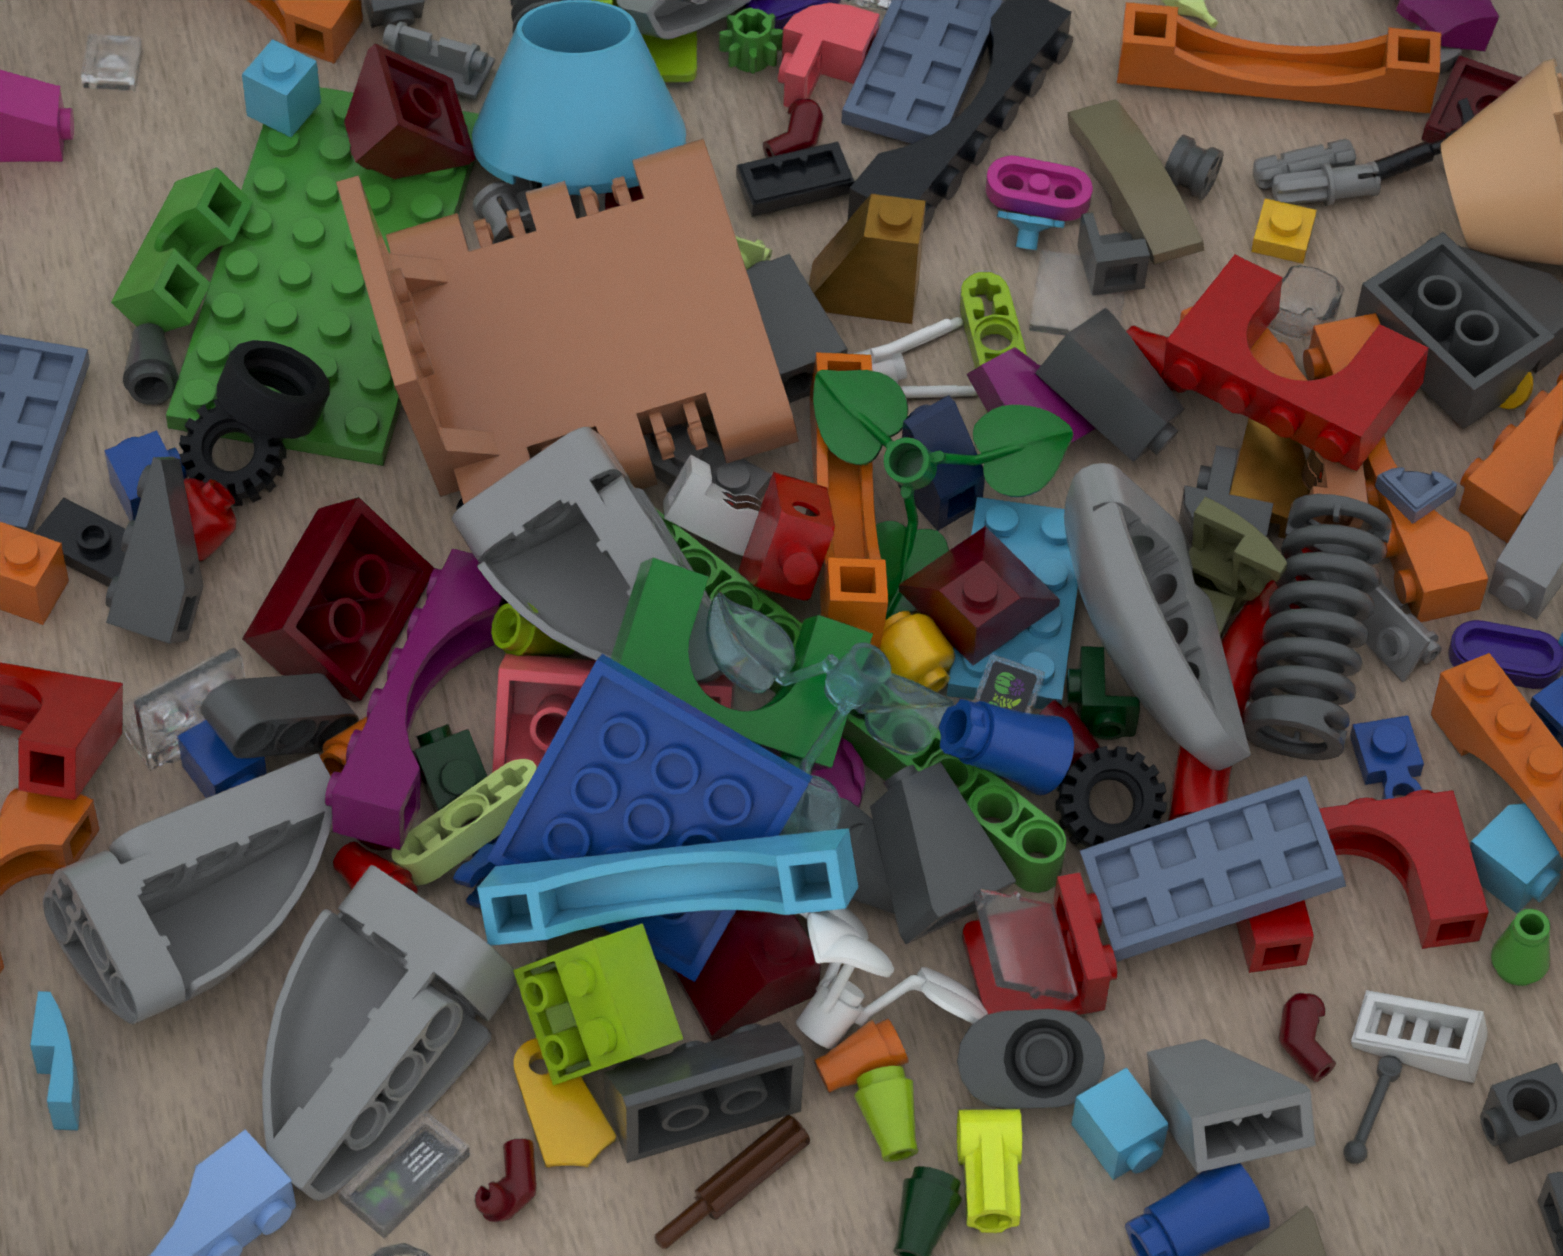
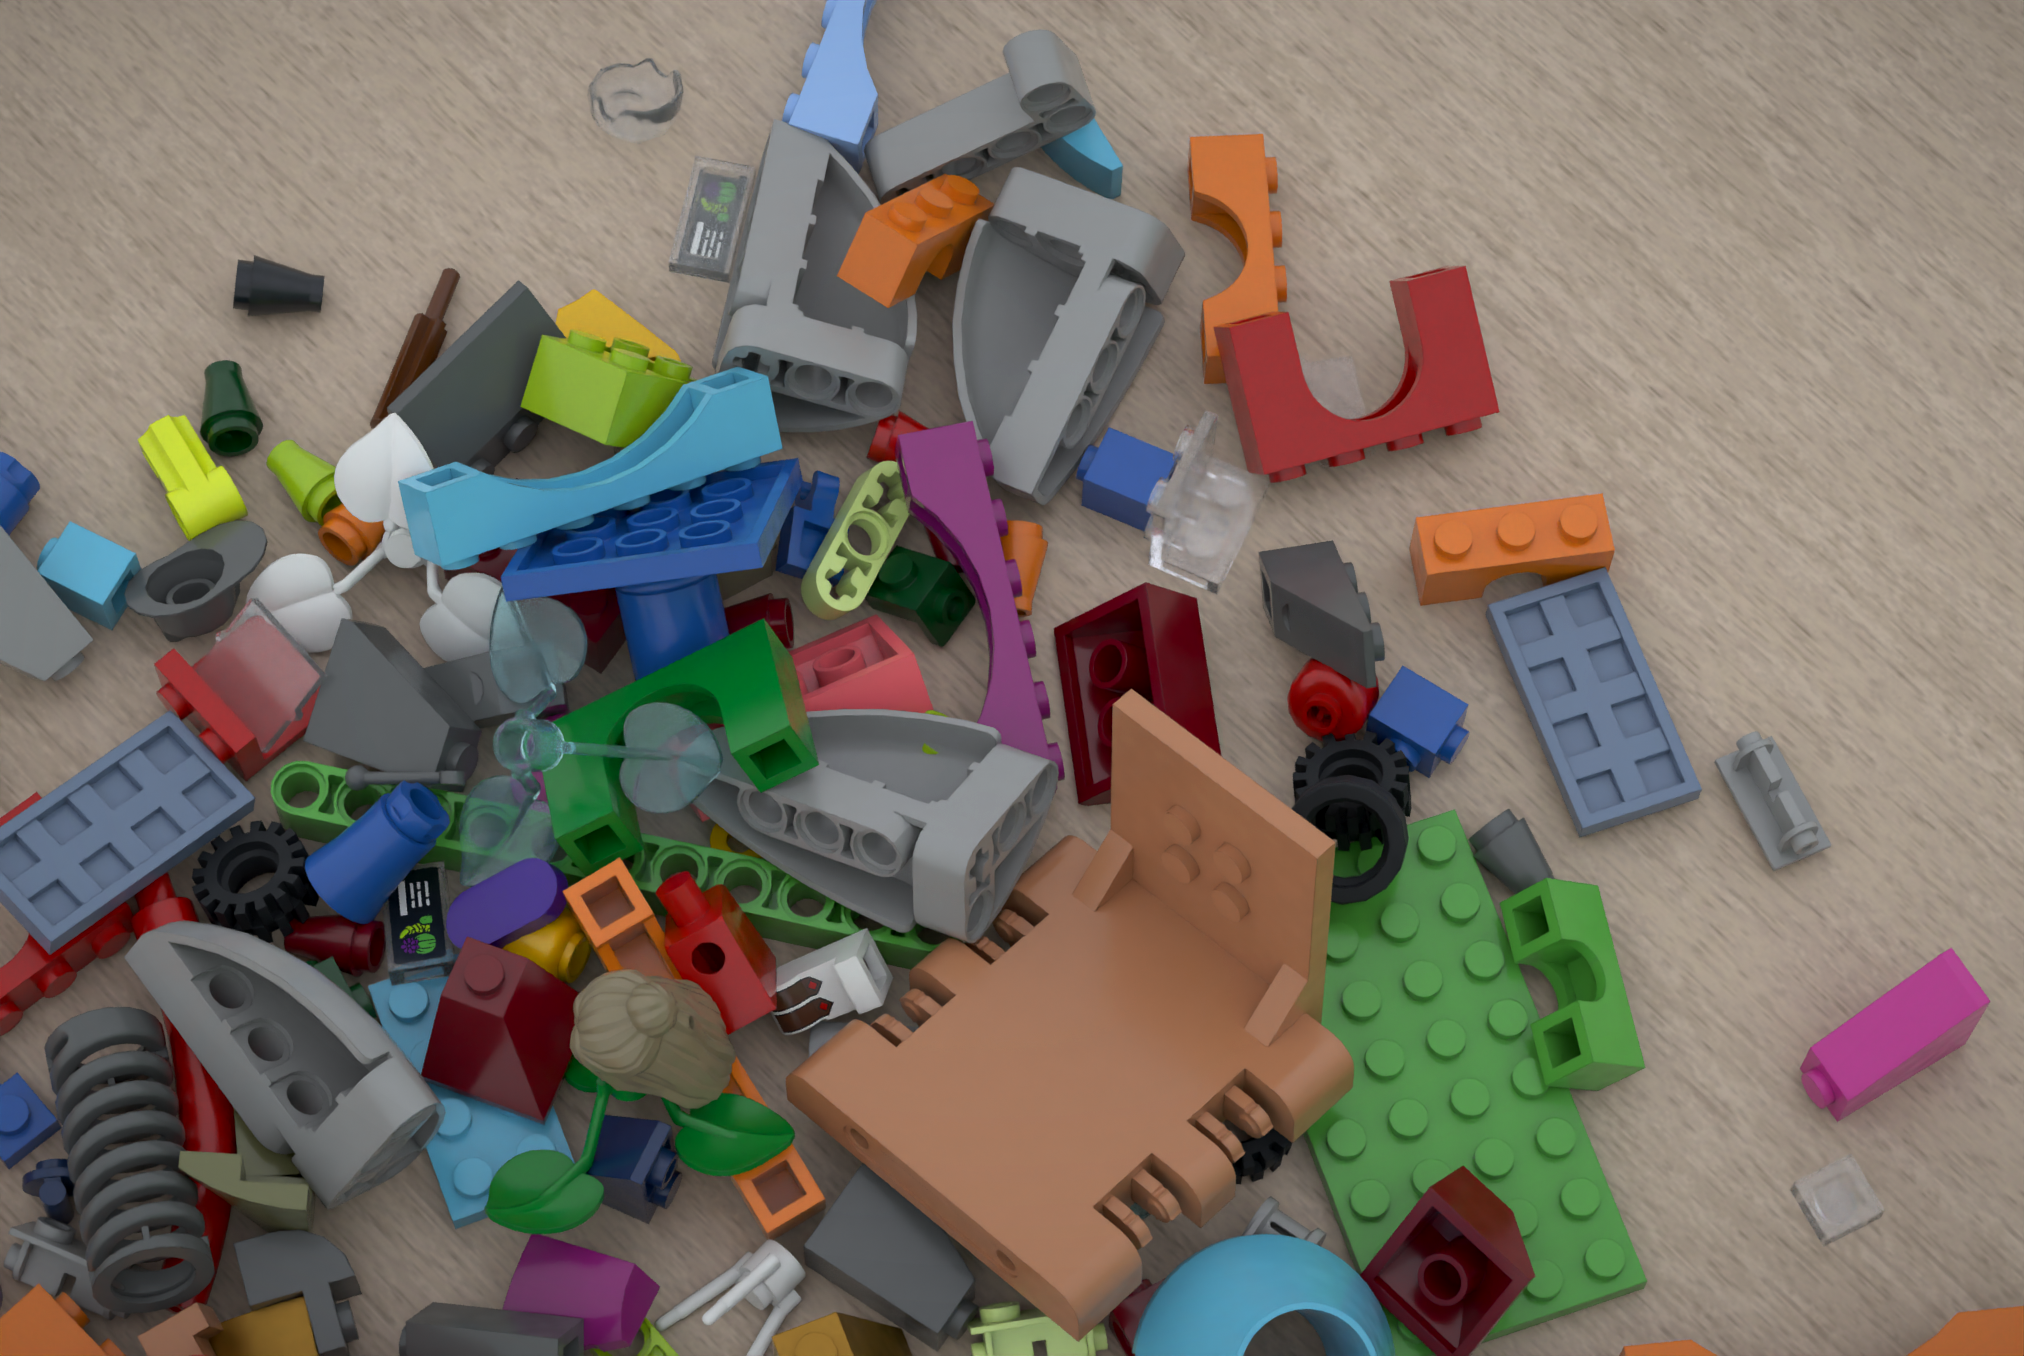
camera: 150 degrees right, 10 degrees up
(87, 540) = (1430, 641): black plate -> none
(126, 1076) = (989, 125): none -> light grey beam
(277, 714) = (1096, 521): dark grey beam -> none
(281, 88) = (1612, 1221): medium azure brick -> none
(287, 963) = (914, 235): none -> orange arch
(515, 1188) = (608, 250): dark red arm -> none
(887, 453) = (653, 1037): none -> dark tan hair
(923, 742) = (359, 778): none -> dark grey hinge
(930, 659) = (508, 904): none -> dark purple tile
(1378, 676) = (53, 1186): none -> dark blue plate

